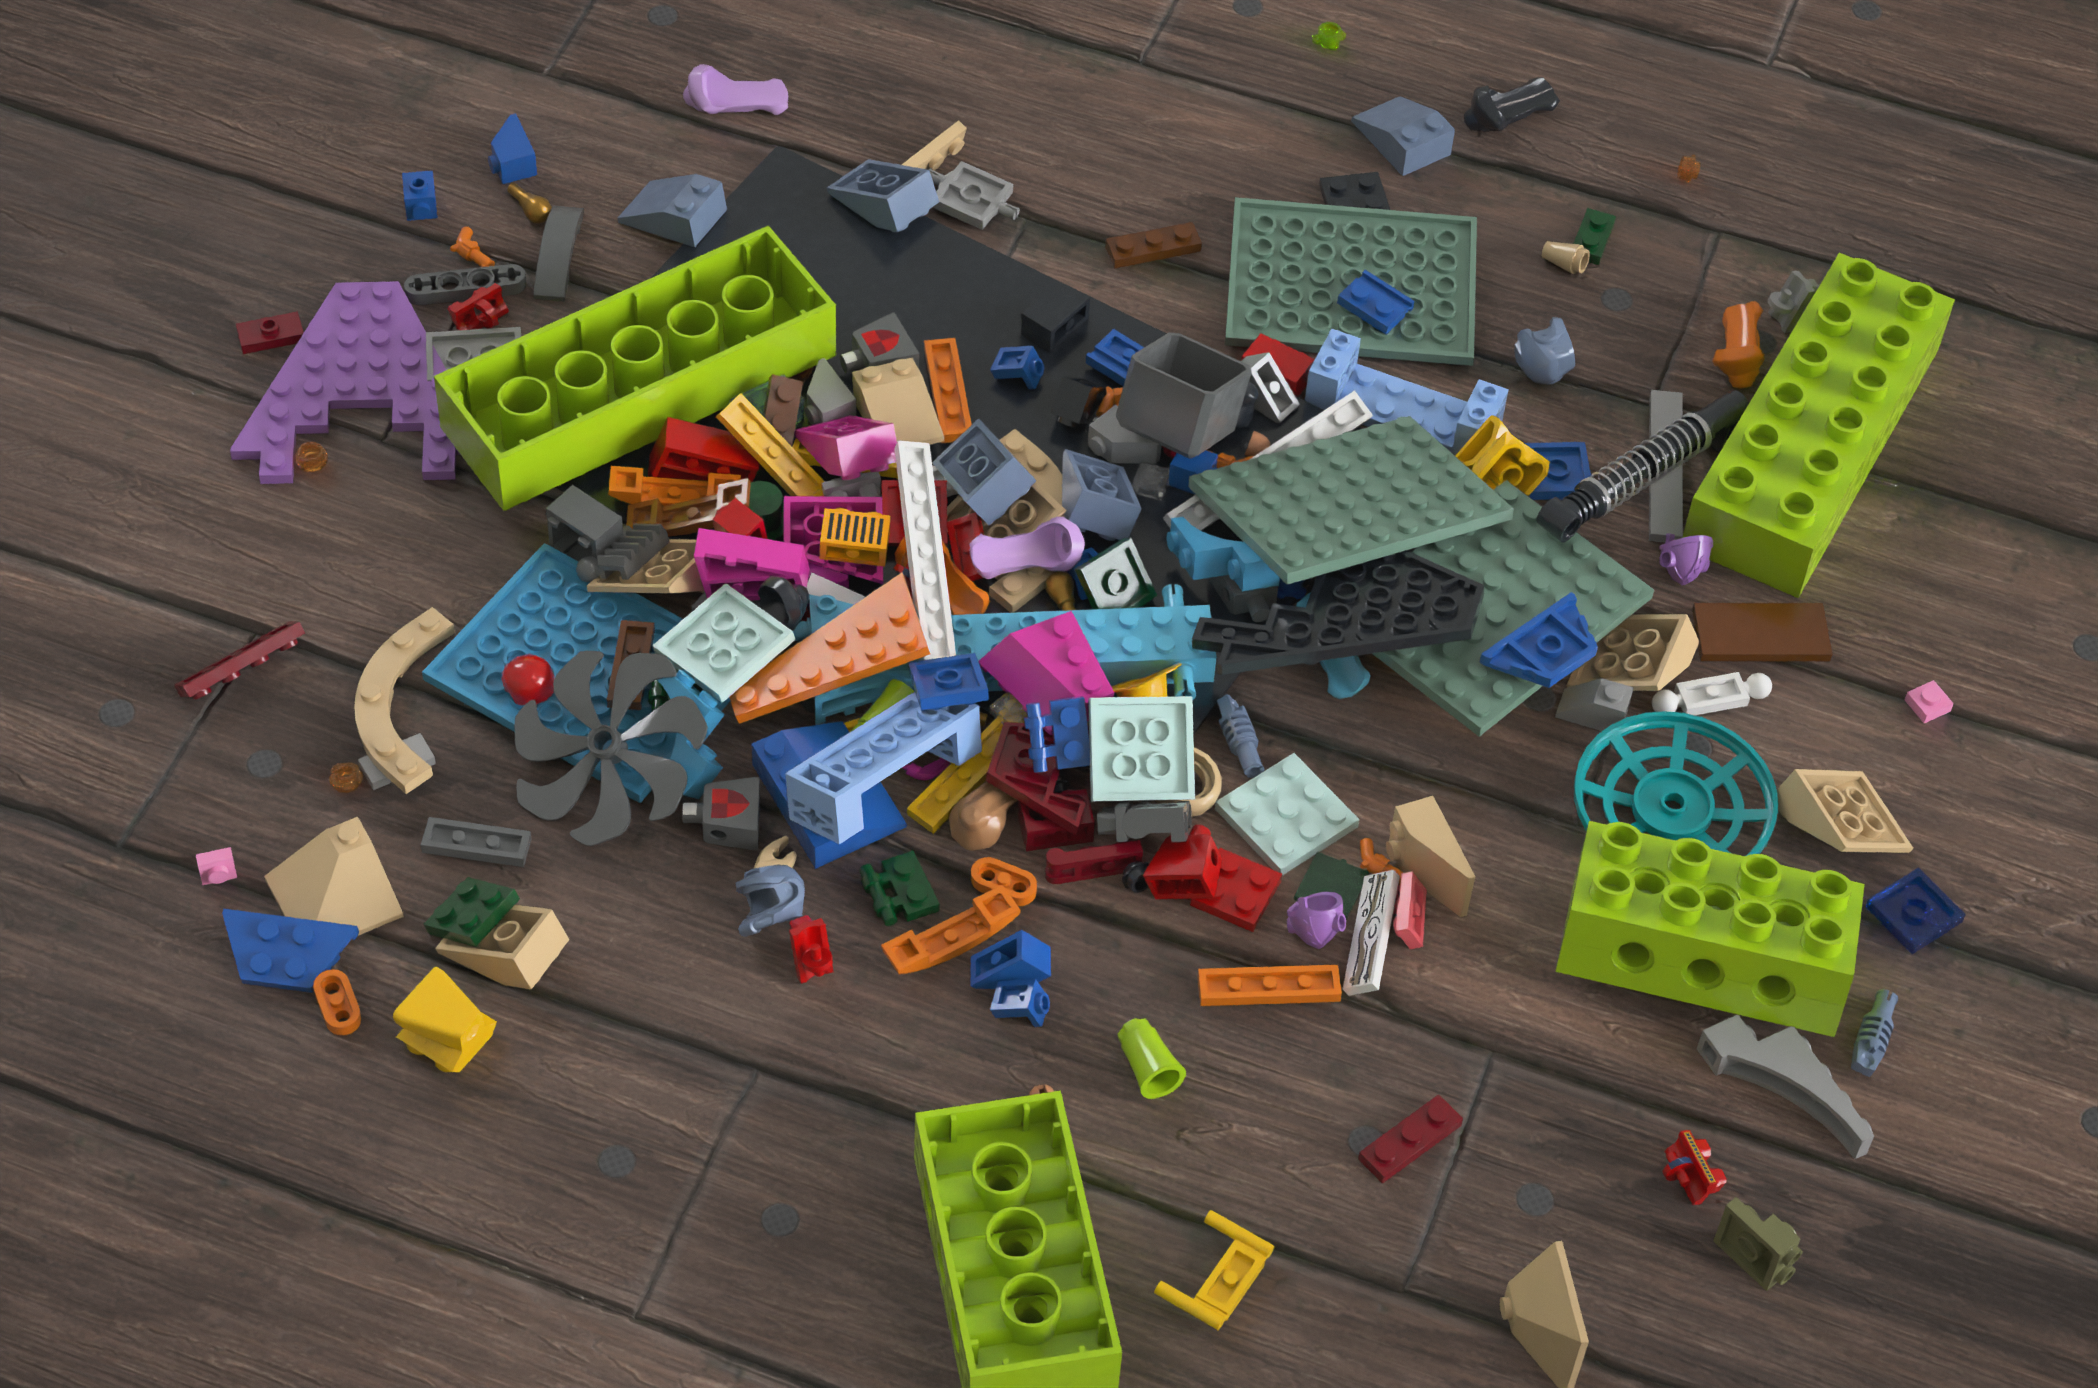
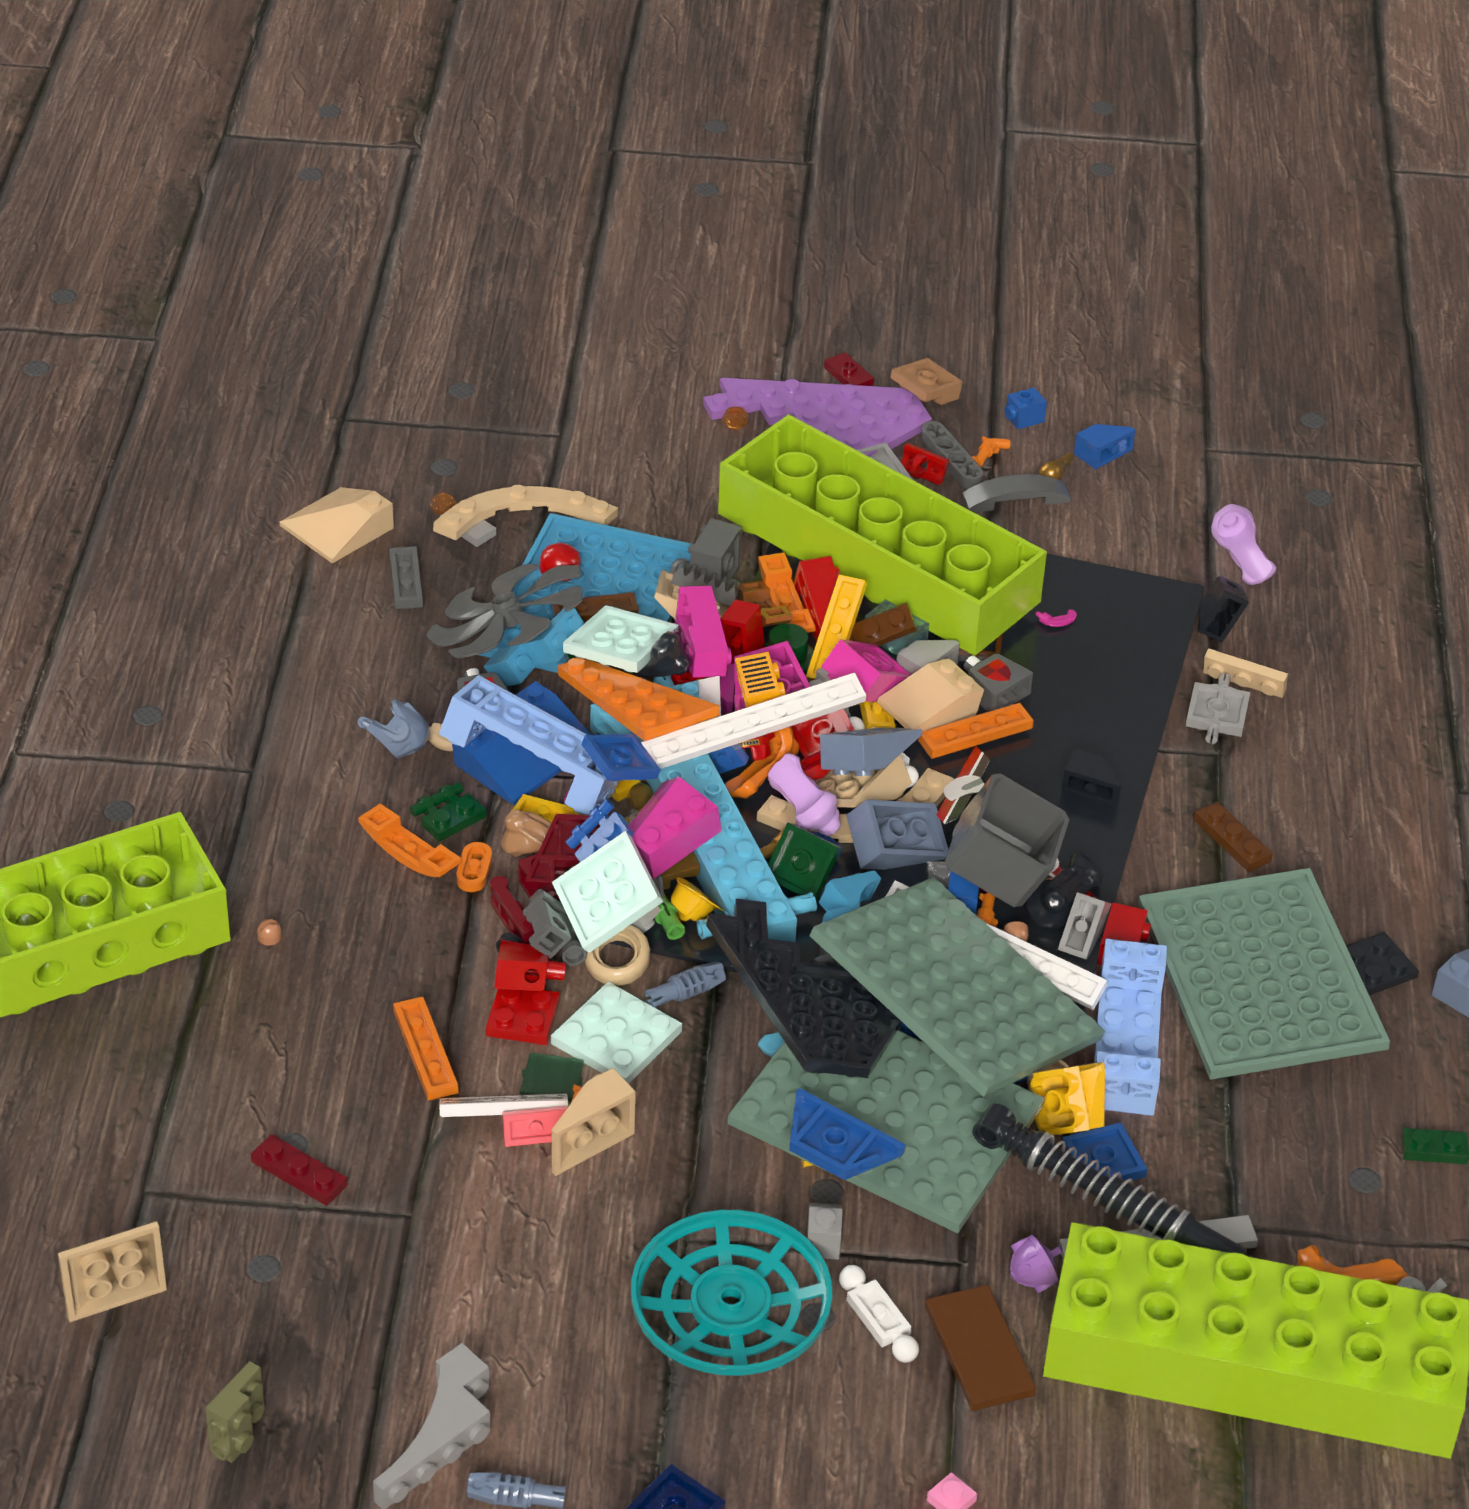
camera: 75 degrees right, 10 degrees down
(216, 866) = (335, 459): bright pink plate -> none
(228, 667) = (533, 432): dark red plate -> none
(284, 949) = (275, 506): blue wing -> none
(339, 1004) = (238, 543): orange plate -> none
(340, 261) = (928, 381): none -> medium nougat plate
(442, 1022) = (233, 591): yellow piece -> none
(471, 911) = (337, 585): dark green plate -> none
(515, 949) = (315, 611): tan slope -> none
(677, 208) = (1090, 544): sand blue slope -> none
(810, 948) = (356, 764): red hips -> none
(832, 137) = (1225, 602): none -> black torso
(886, 193) = (1175, 651): sand blue slope -> none
(1011, 959) = (391, 887): blue slope -> none
(1018, 362) = (1026, 768): blue bracket -> none
(1020, 999) = (357, 901): blue bracket -> none
(1043, 420) = (961, 788): none -> sticker
(1113, 356) = (1078, 830): blue plate -> none
(1150, 1059) = (321, 982): lime plant -> none
(1228, 1279) = (121, 1070): yellow plate -> none
(1317, 918) = (495, 1067): medium lavender helmet -> none
(1375, 302) = (1234, 985): blue plate -> none
(1545, 353) = (1232, 1109): sand blue helmet -> none
(1567, 256) = (1390, 1127): tan cone -> none
(1642, 652) = (895, 1245): tan slope -> none
(1690, 1167) = (307, 1373): red hips -> none
(1712, 927) = (566, 1322): lime brick -> none
(1840, 811) = (769, 1434): tan slope -> none

